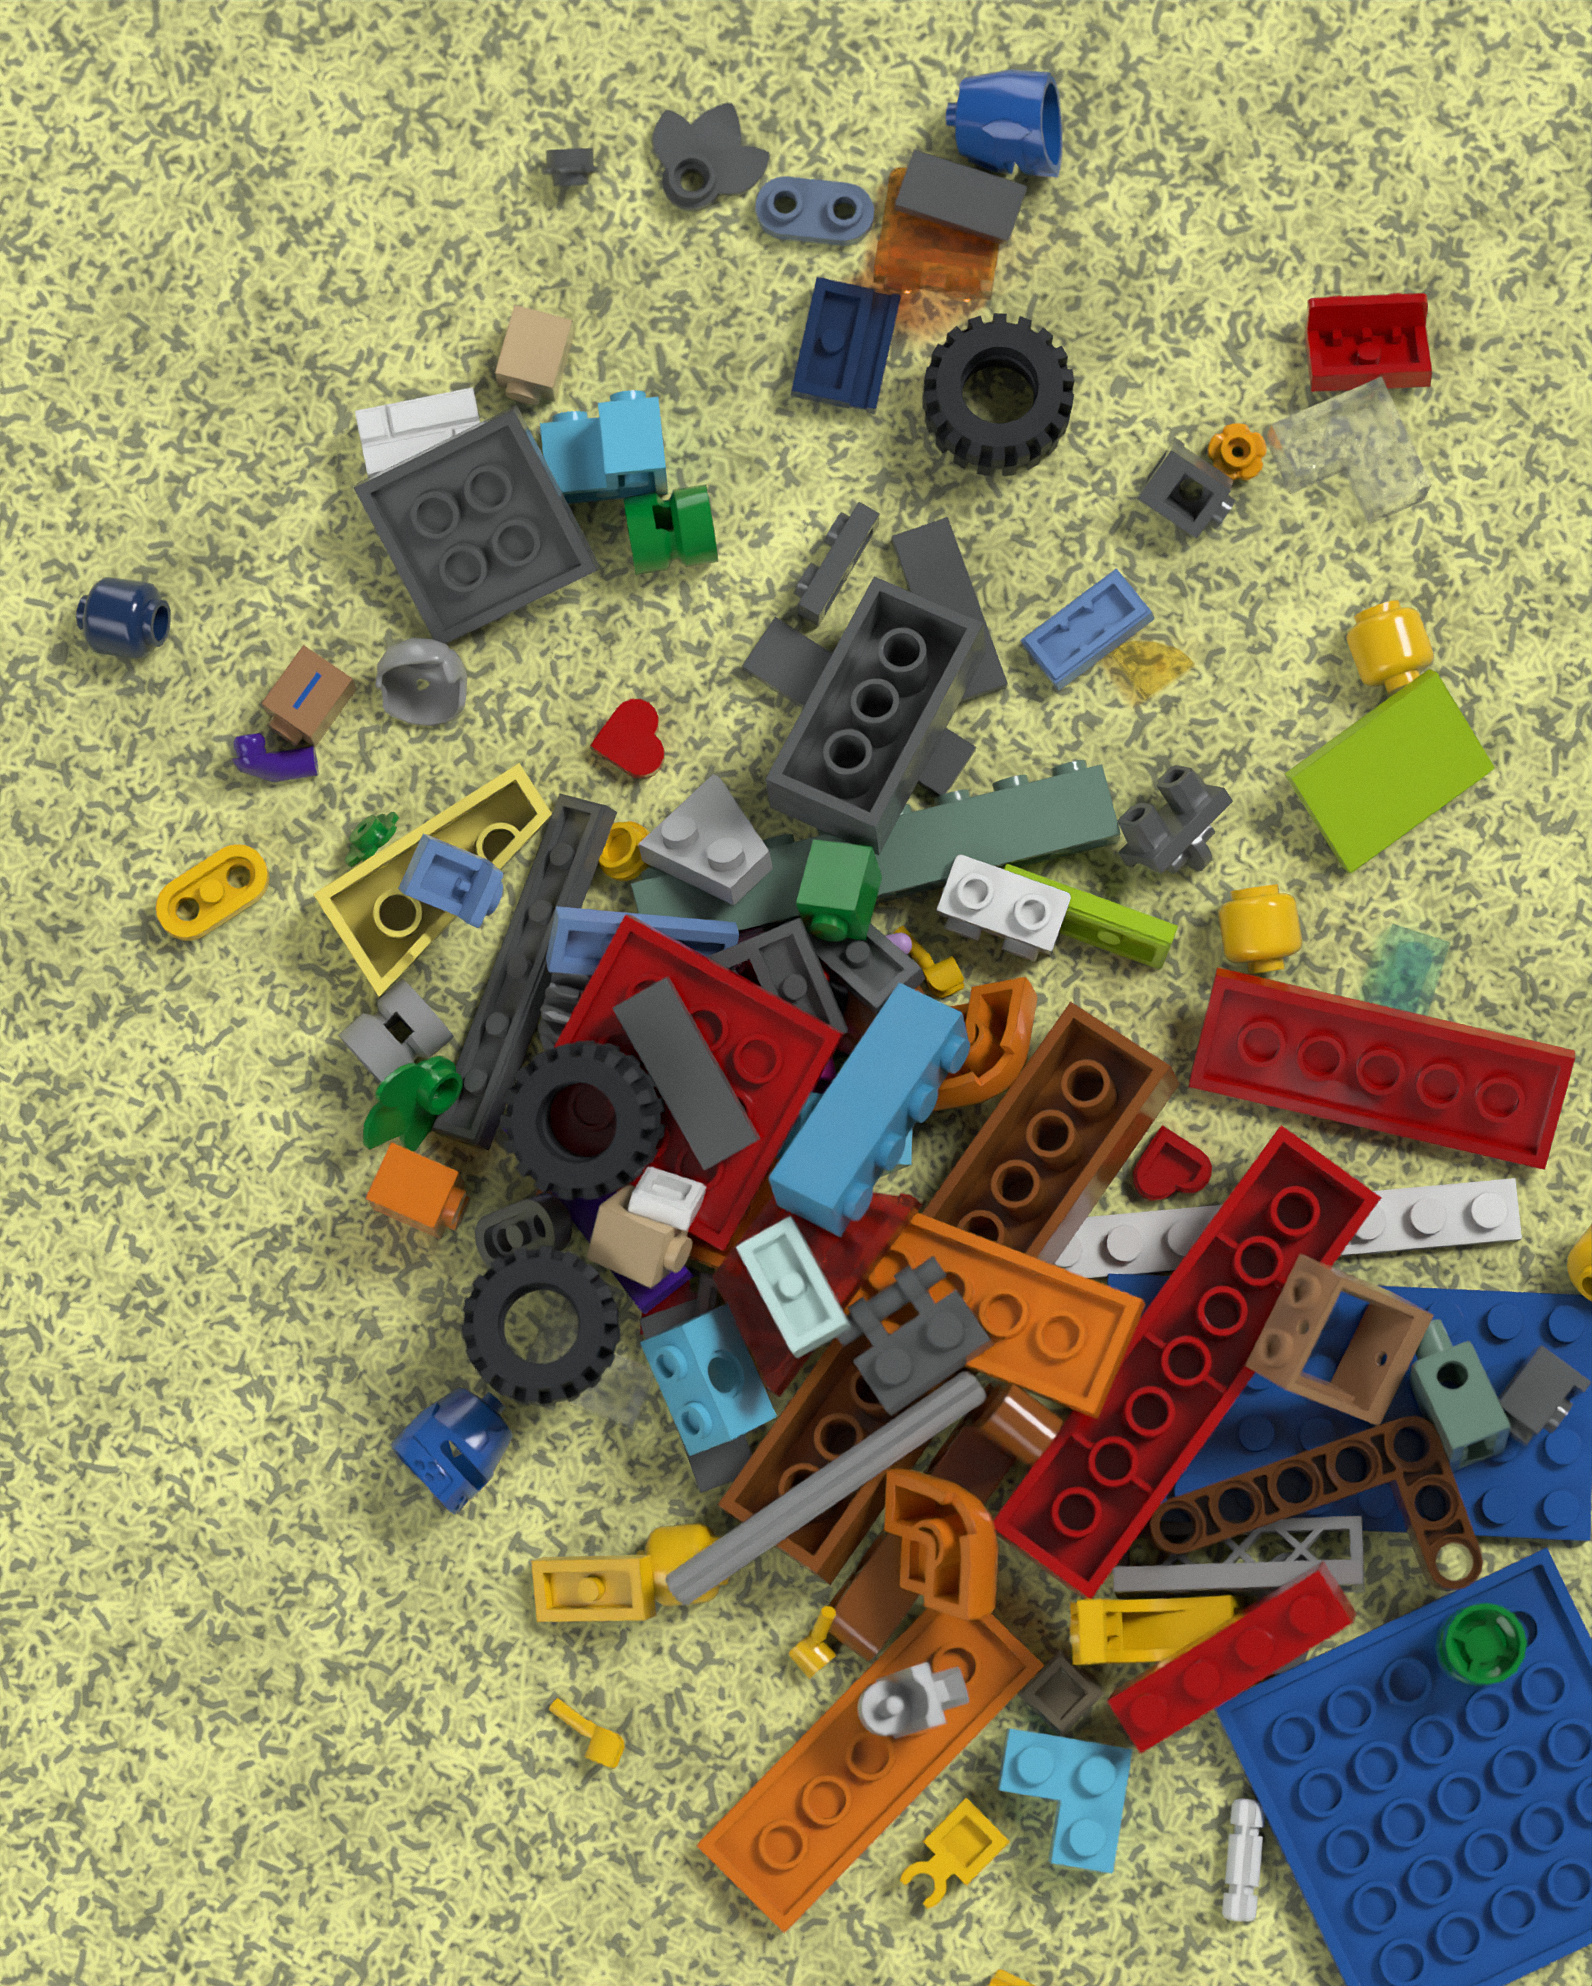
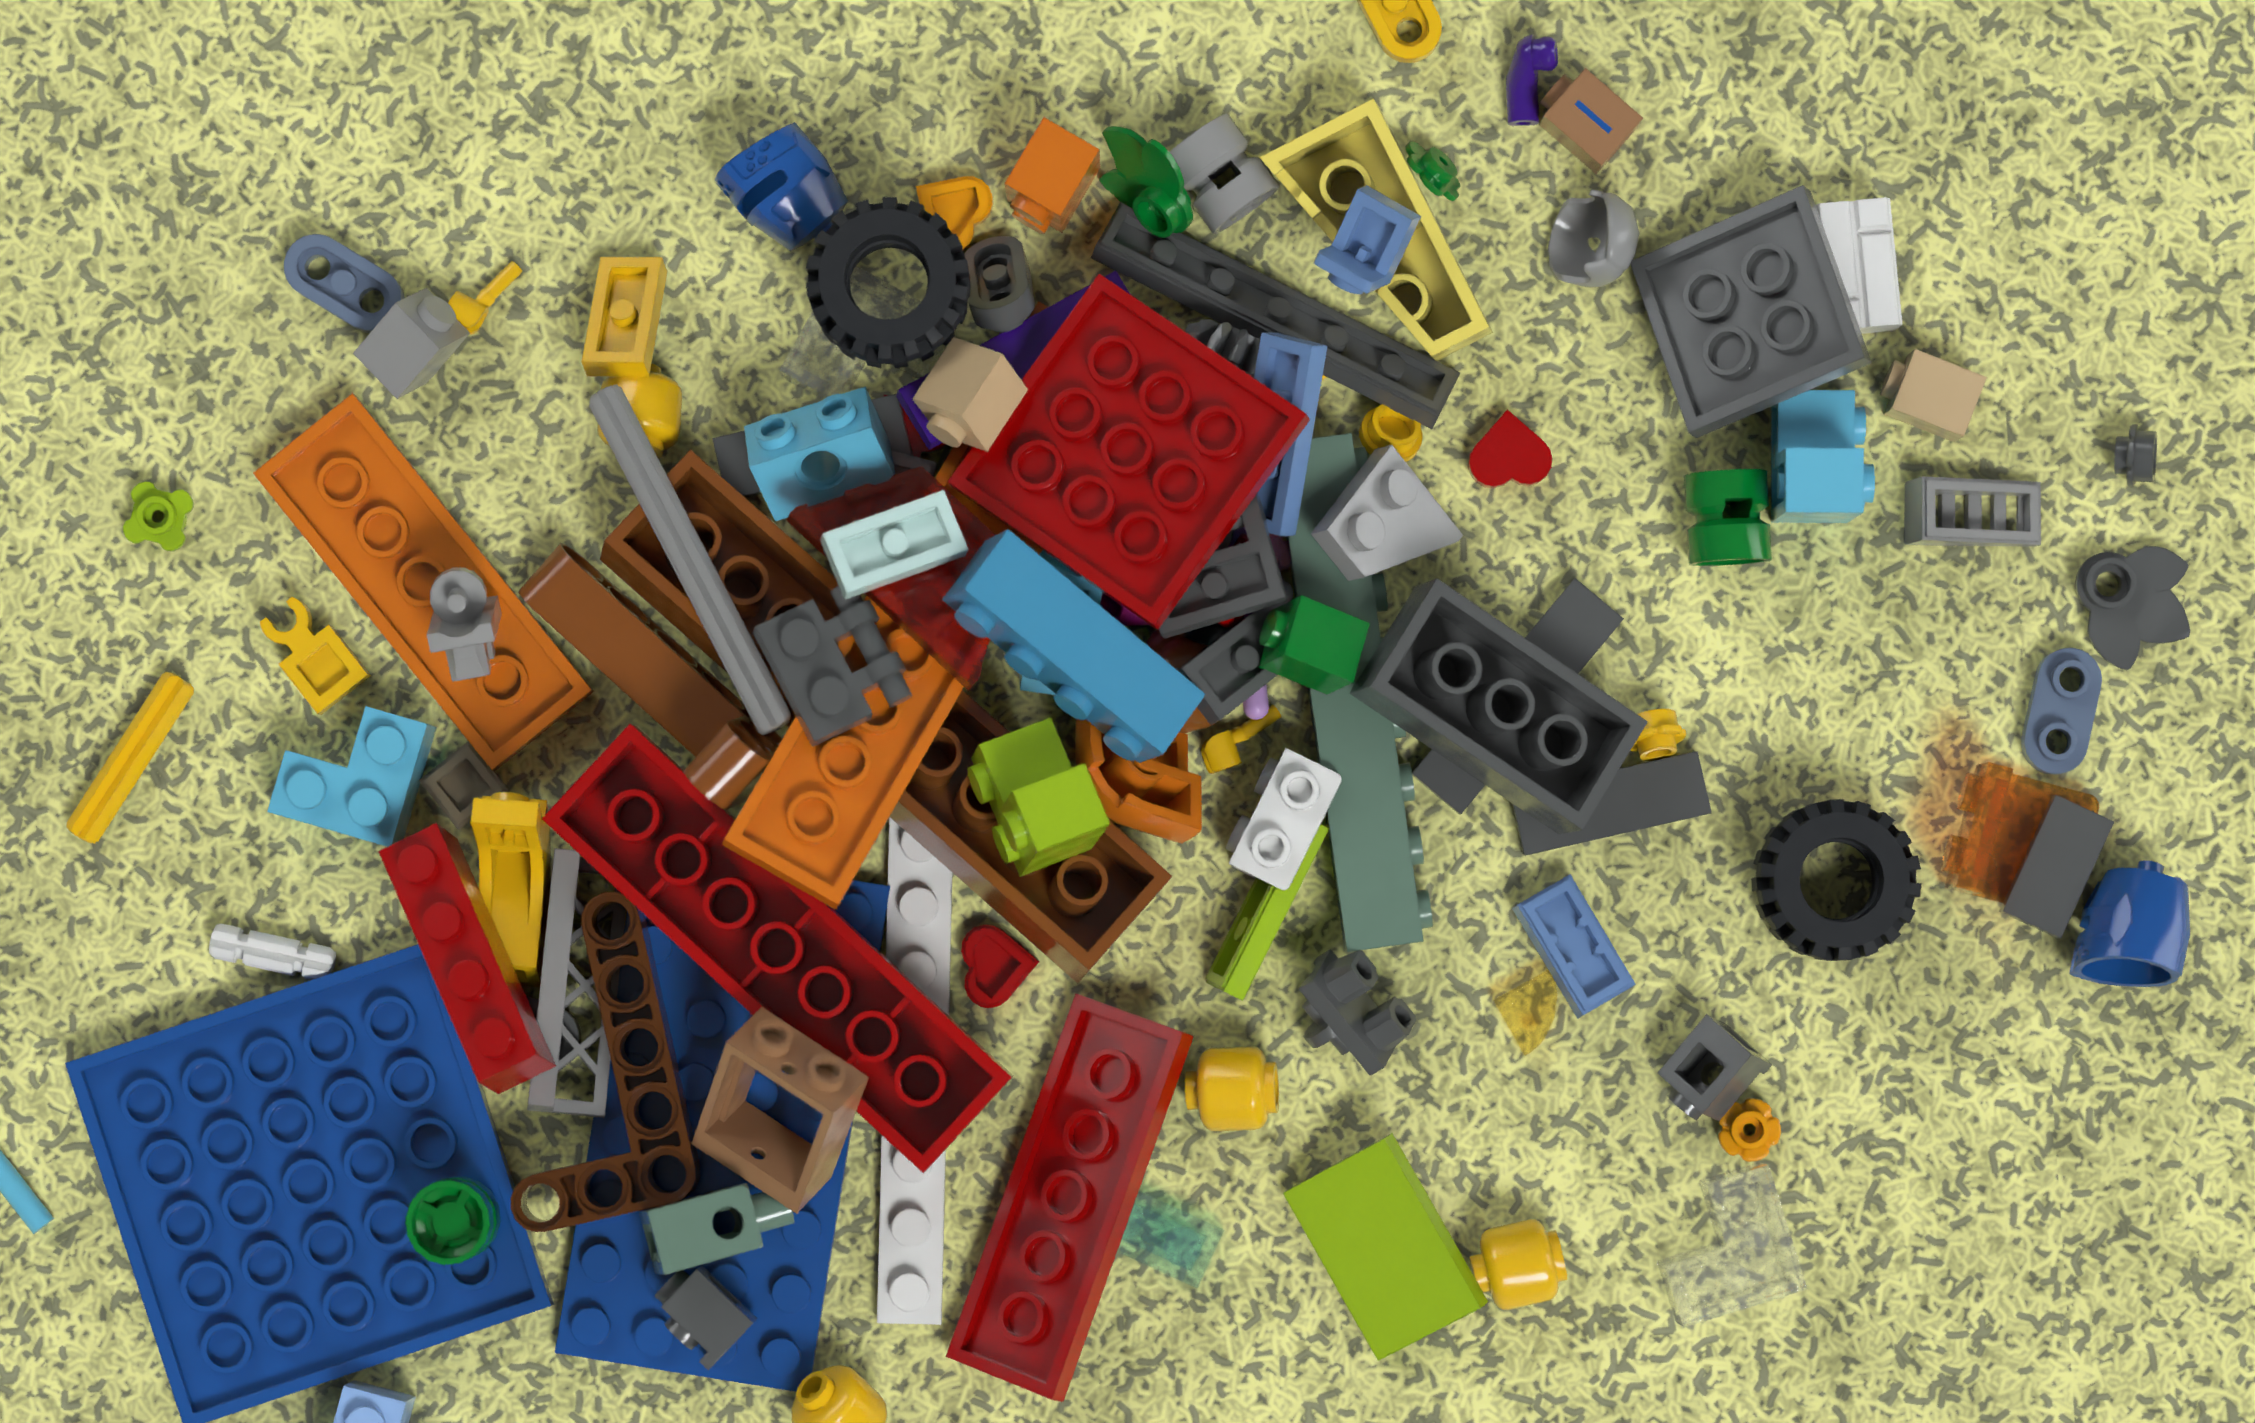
camera: 100 degrees right, 5 degrees up
(447, 1284) = (959, 202): none -> light orange tile
(531, 1131) = (1067, 303): black tyre -> none
(589, 1867) = (345, 284): none -> sand blue plate
(639, 347) = (1921, 519): none -> light grey slope
(641, 1791) = (411, 342): none -> light grey brick
(667, 1198) = (1004, 425): white tile -> none
(686, 1073) = (1132, 459): dark grey tile -> none
(813, 1652) = (536, 536): yellow hand -> none
(845, 345) = (1909, 726): dark blue plate -> none
(847, 541) = (1696, 704): dark grey plate -> none
(880, 566) = (1659, 735): none -> yellow plate
(945, 1545) = (615, 675): orange brick -> none
(1014, 1129) = (1037, 797): none -> lime brick
(1367, 339) = (1852, 1283): red bracket -> none

